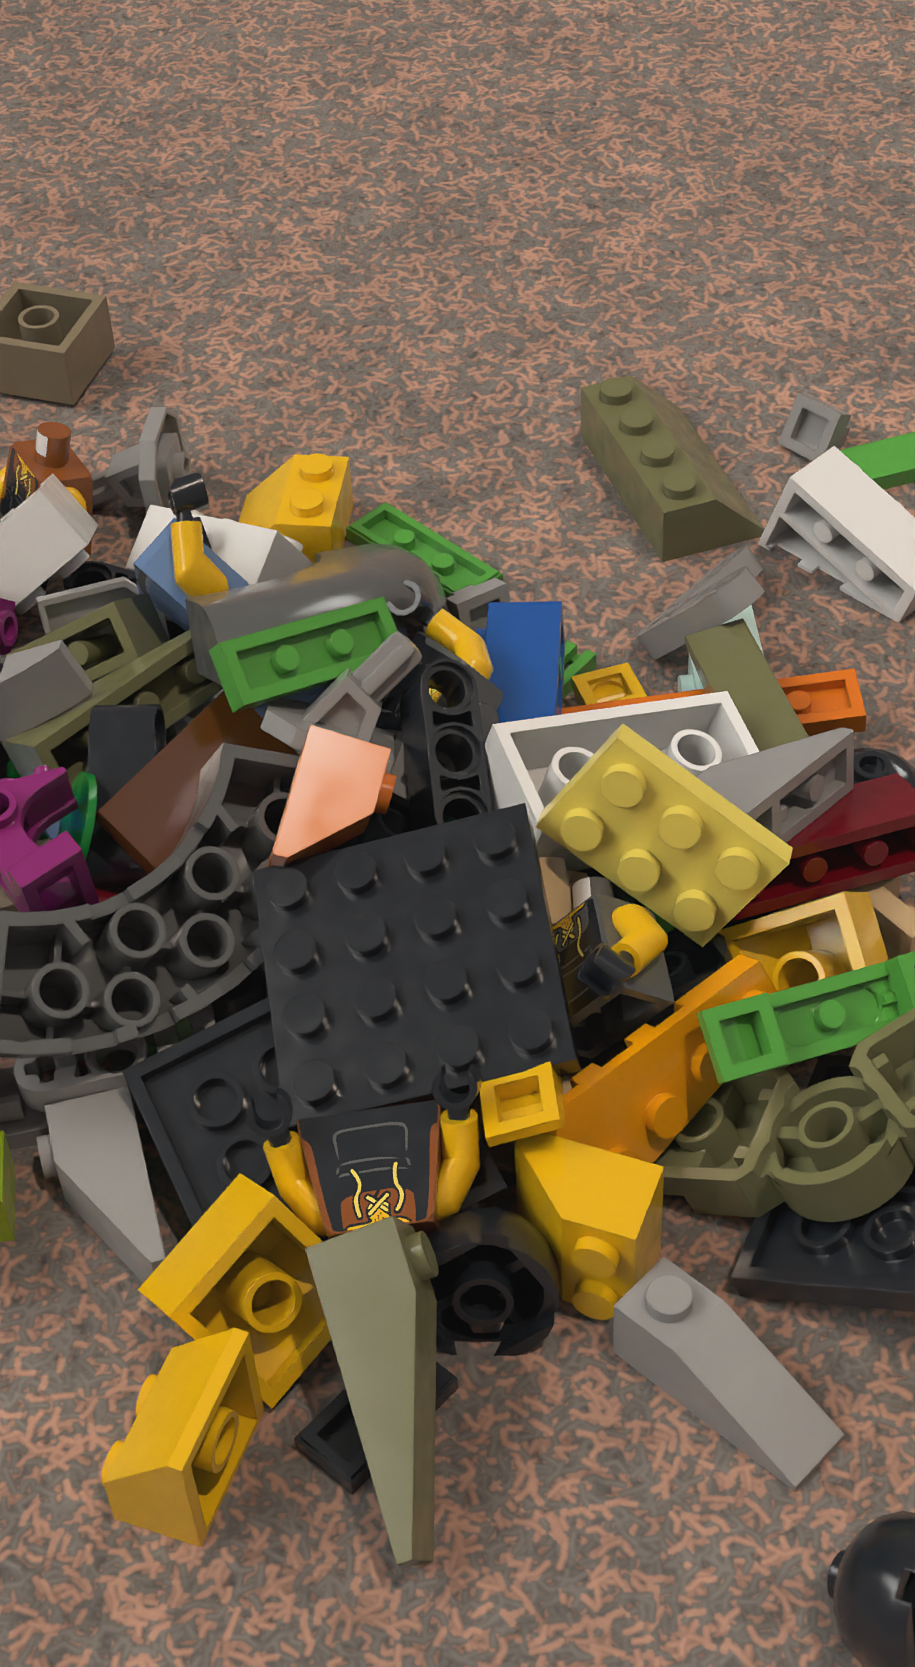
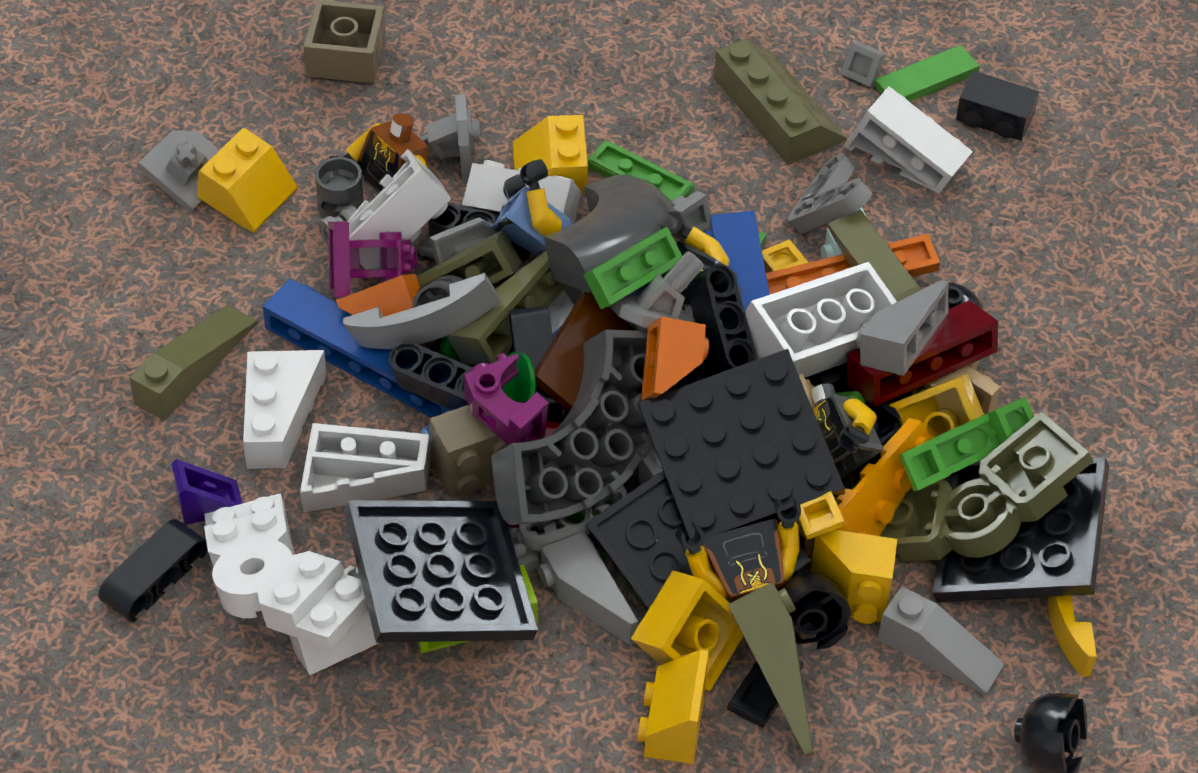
camera: 15 degrees left, 5 degrees up
(664, 836) = (862, 358): light yellow plate -> none

